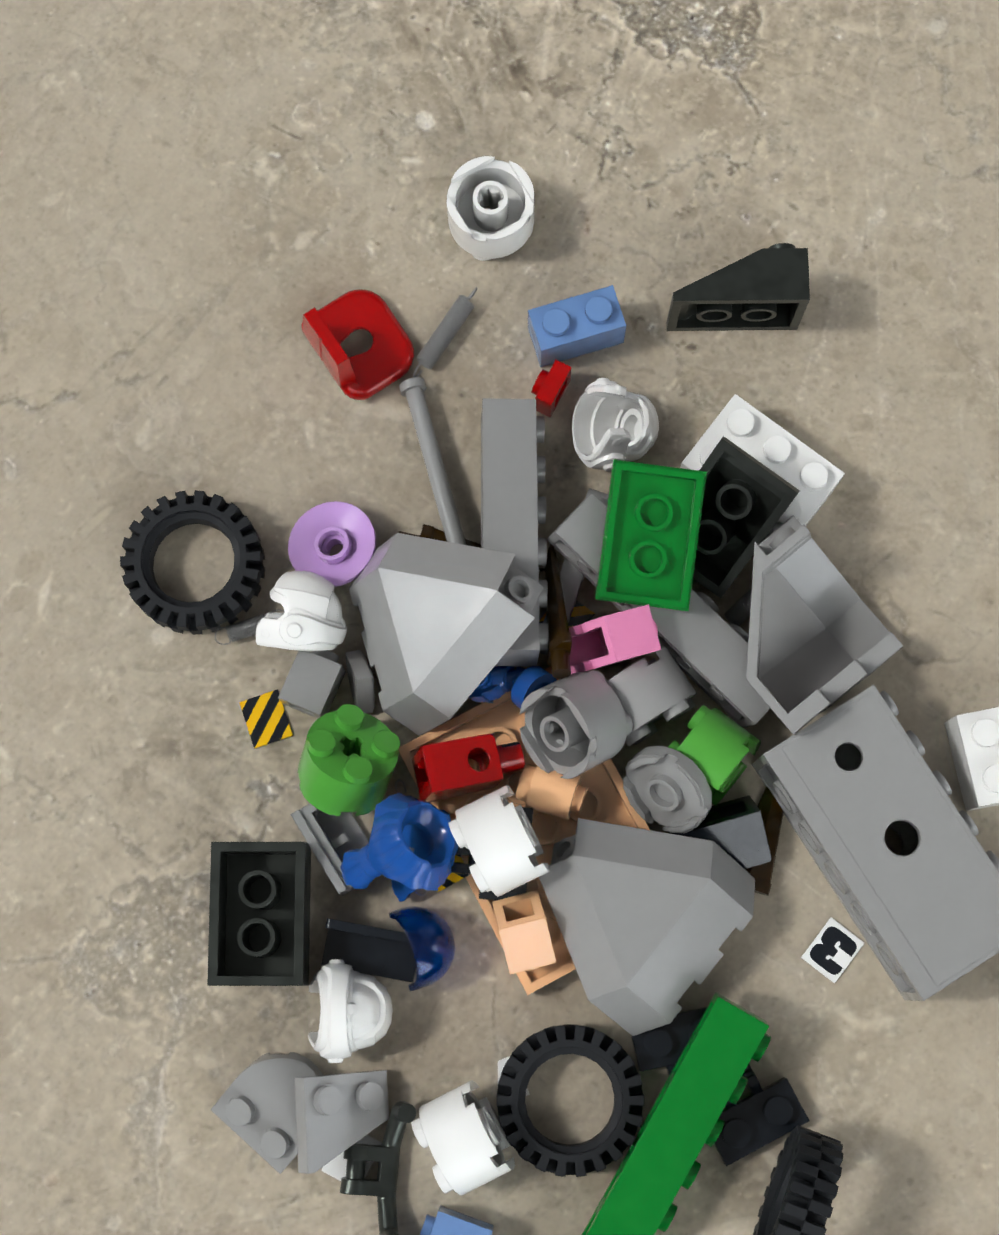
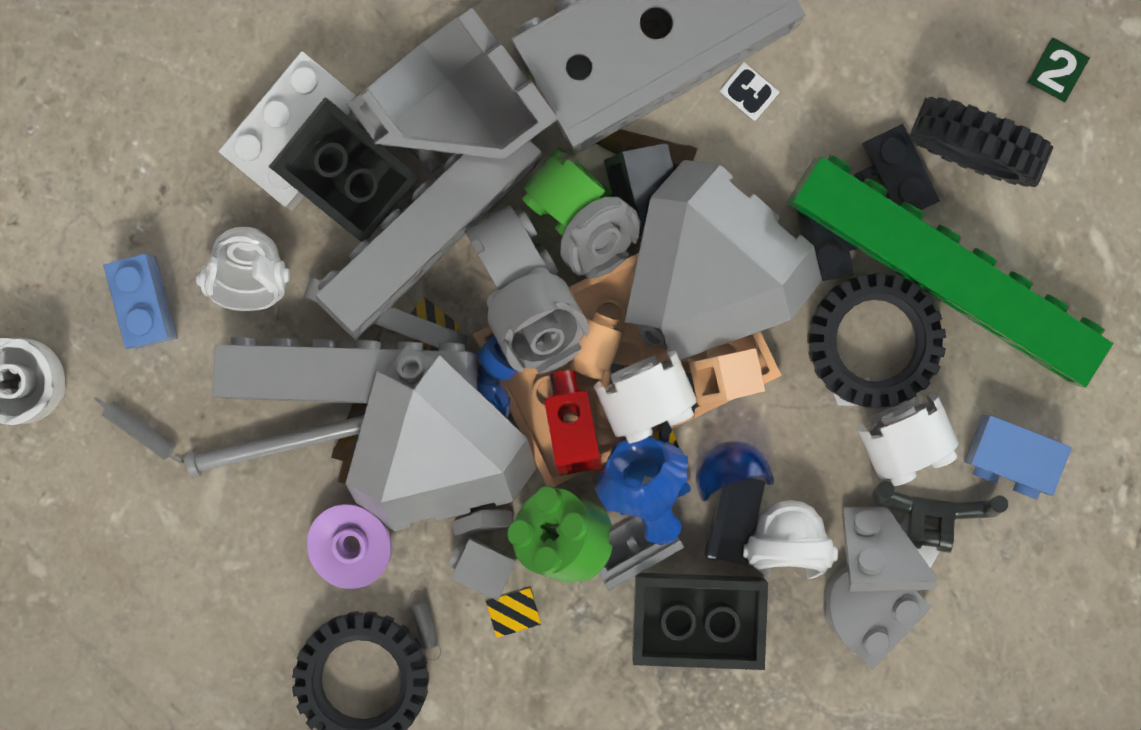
camera: 90 degrees left, 10 degrees up
(310, 615) = (420, 569): white helmet -> none
(369, 371) = (175, 503): red piece -> none
(550, 387) = (200, 329): red plate -> none
(558, 630) = (454, 332): dark brown bar -> none
(613, 639) = (458, 286): bright pink brick -> none
(650, 535) = (360, 241): green tile -> none
(751, 294) = (115, 123): pearl dark grey slope -> none

